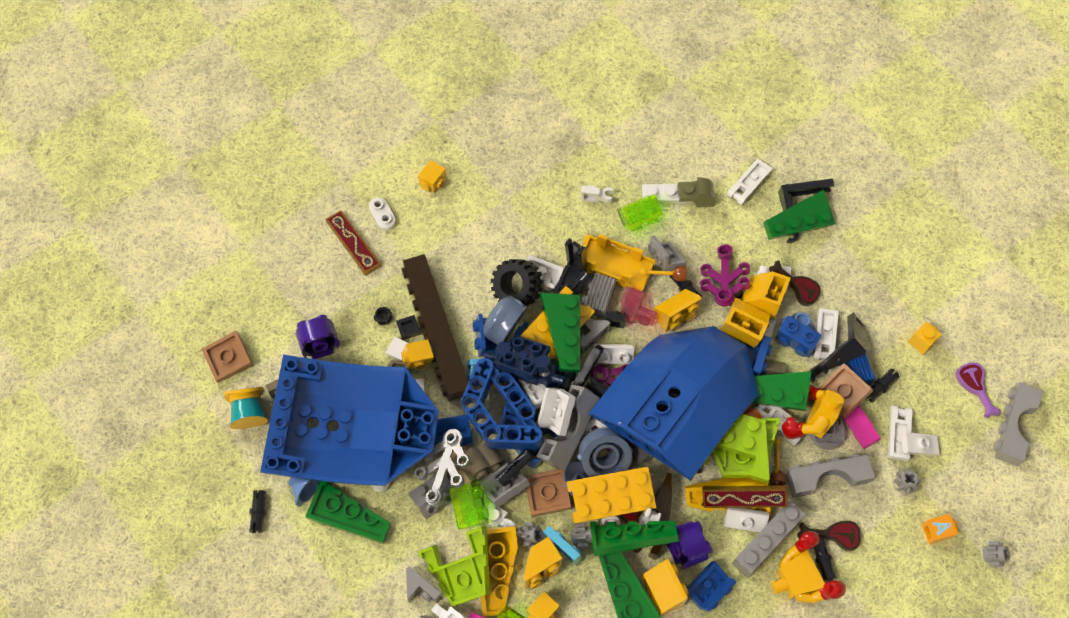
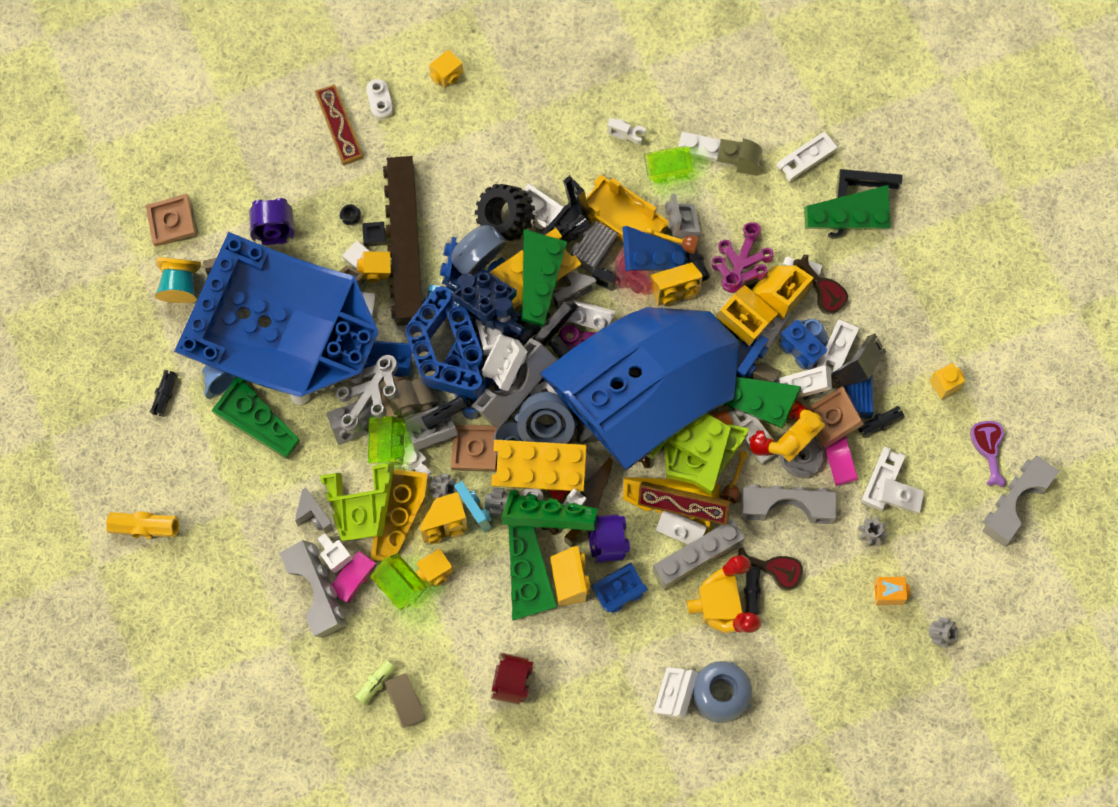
camera: 15 degrees right, 5 degrees up
(649, 288) = (650, 252): none -> blue wing
(817, 364) = (811, 381): none -> white plate

